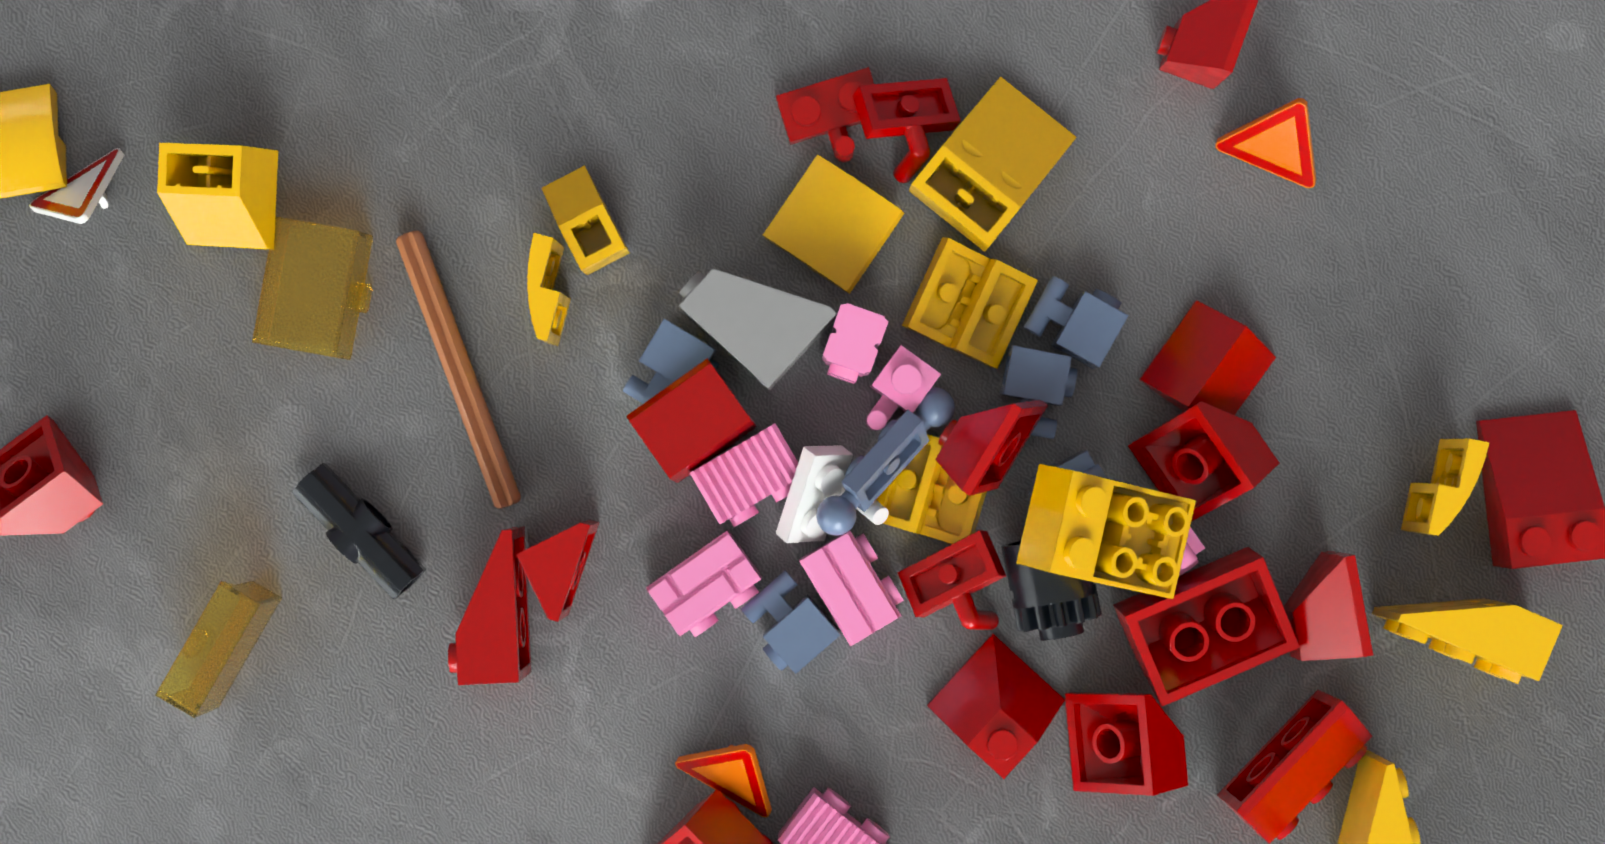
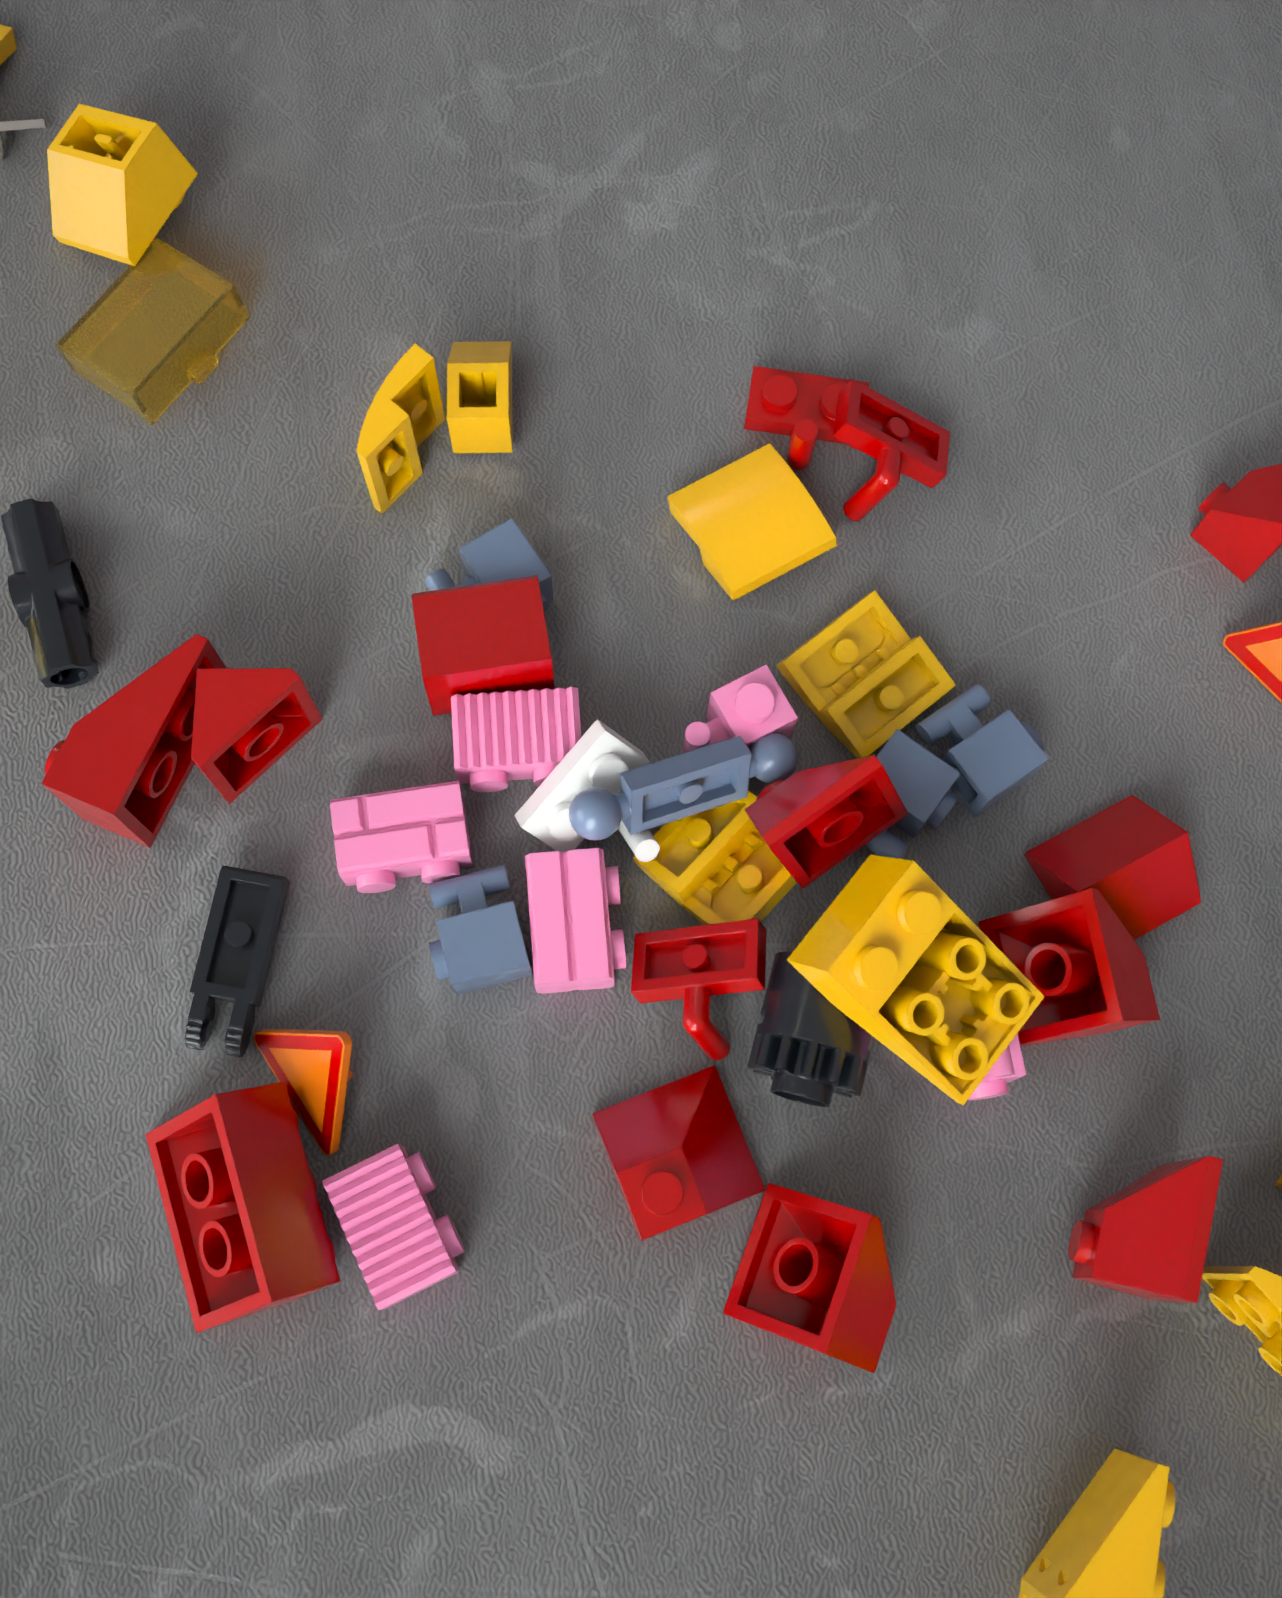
camera: 20 degrees right, 15 degrees down
(458, 369) = (258, 487): nougat axle -> none
(634, 716) = (236, 954): none -> black hinge
(755, 322) = (616, 568): light grey slope -> none
(853, 342) = (713, 637): bright pink brick -> none
(991, 164) = (954, 536): yellow slope -> none
(1212, 629) = (988, 1177): red slope -> none
(1296, 766) = (1029, 1420): red slope -> none

